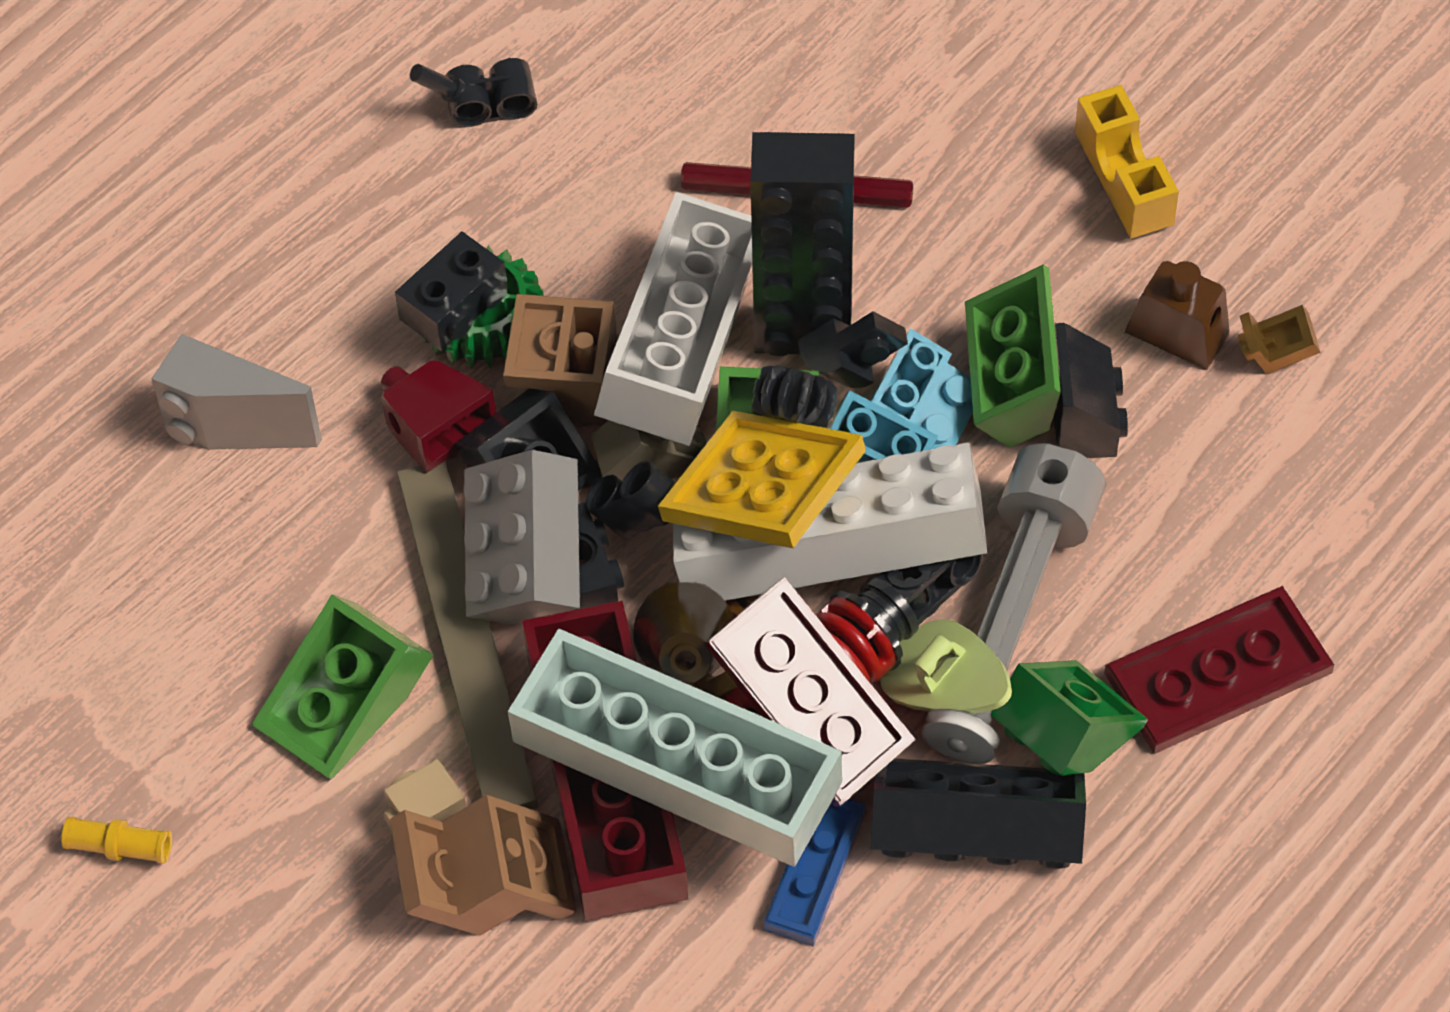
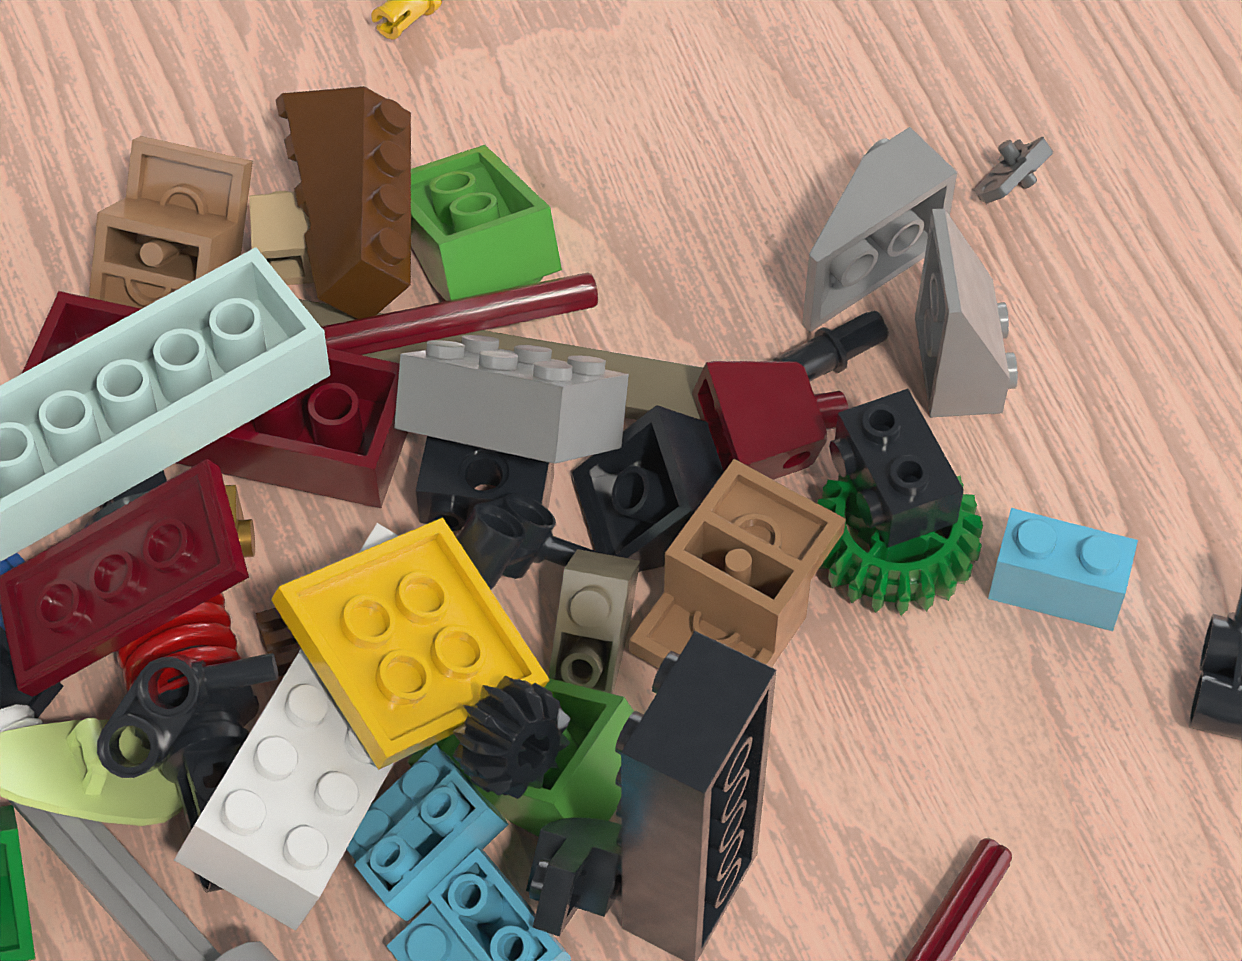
camera: 115 degrees right, 0 degrees up
(113, 359) = (1015, 166): none -> dark grey piece
(302, 315) = (961, 328): none -> light grey slope
(347, 412) = (833, 348): none -> black axle
(374, 746) = (354, 191): none -> reddish brown wedge
(439, 639) = (463, 315): none -> dark red axle
(461, 194) = (1063, 569): none -> medium azure brick
(675, 626) = (285, 506): dark brown cone -> none
(679, 320) = (635, 596): white brick -> none
(886, 595) = (164, 722): none -> black beam

